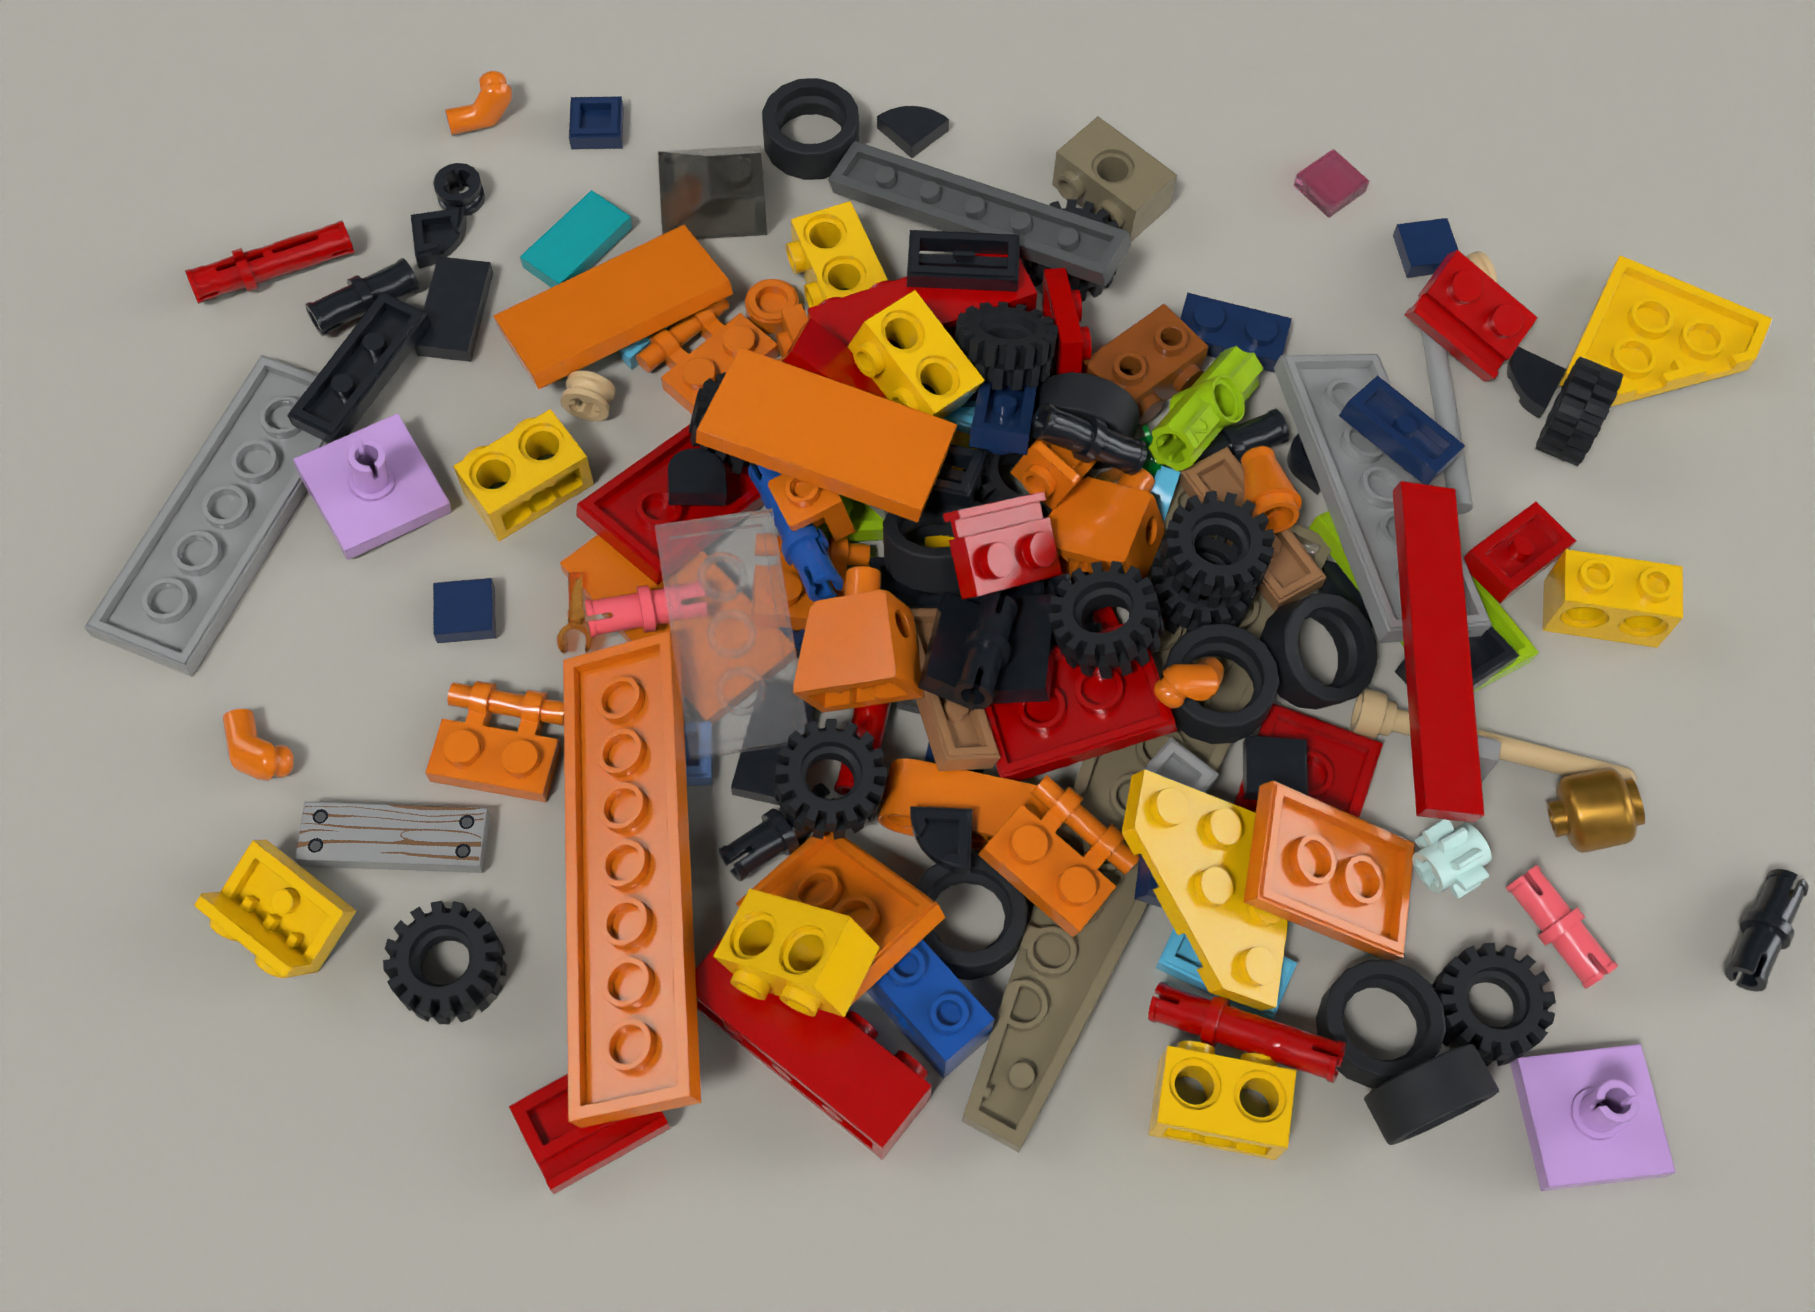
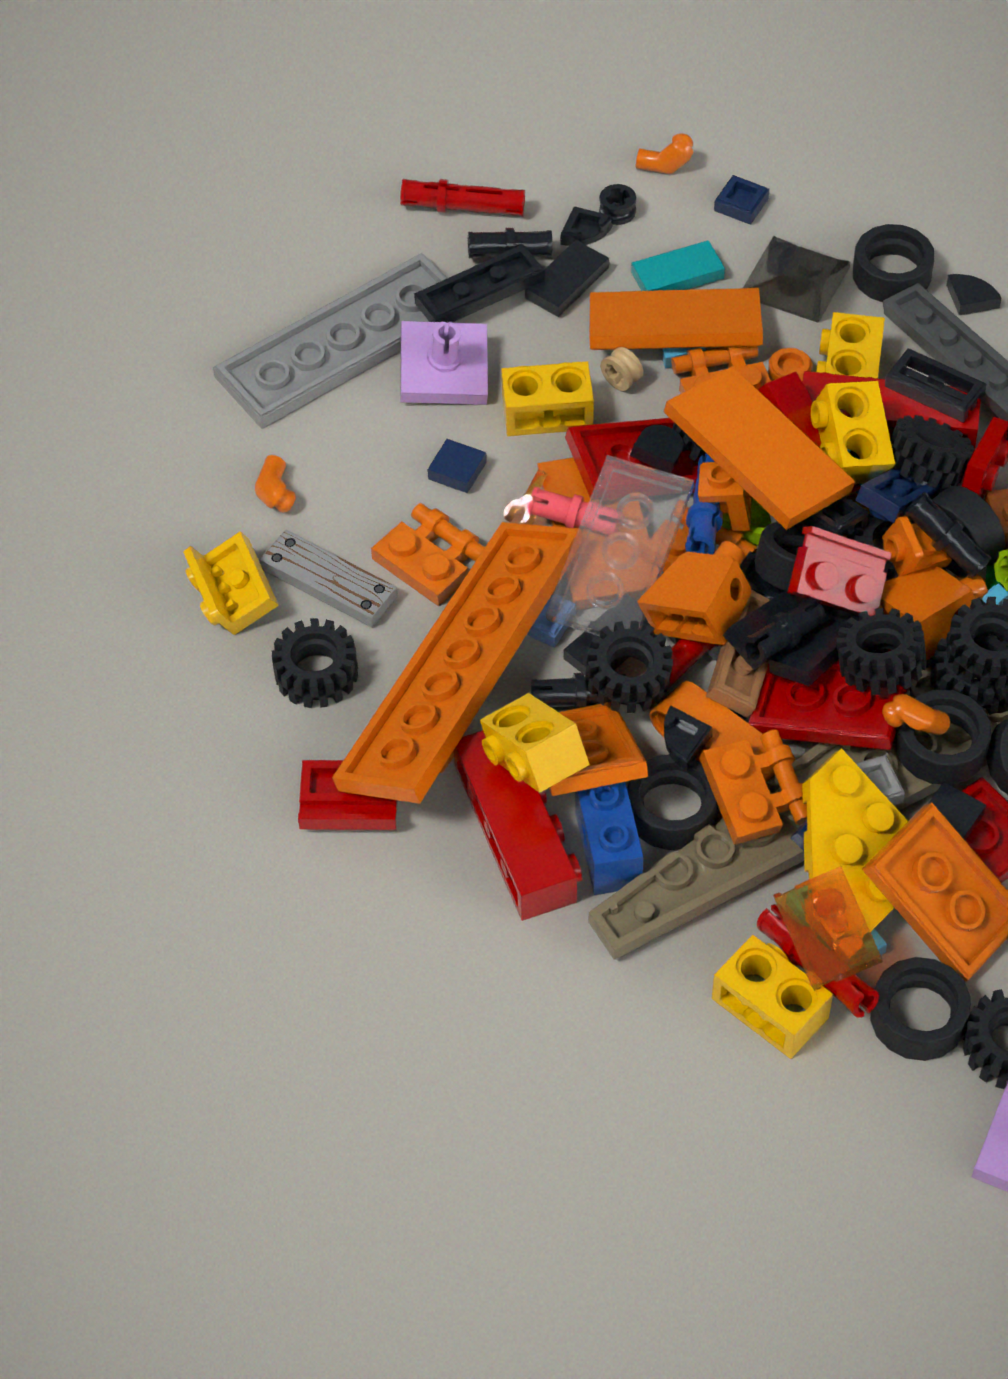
camera: 35 degrees right, 10 degrees down
(1256, 1000) = (828, 928): none -> clear orange plate
(1431, 1094) = (920, 1058): black tyre -> none

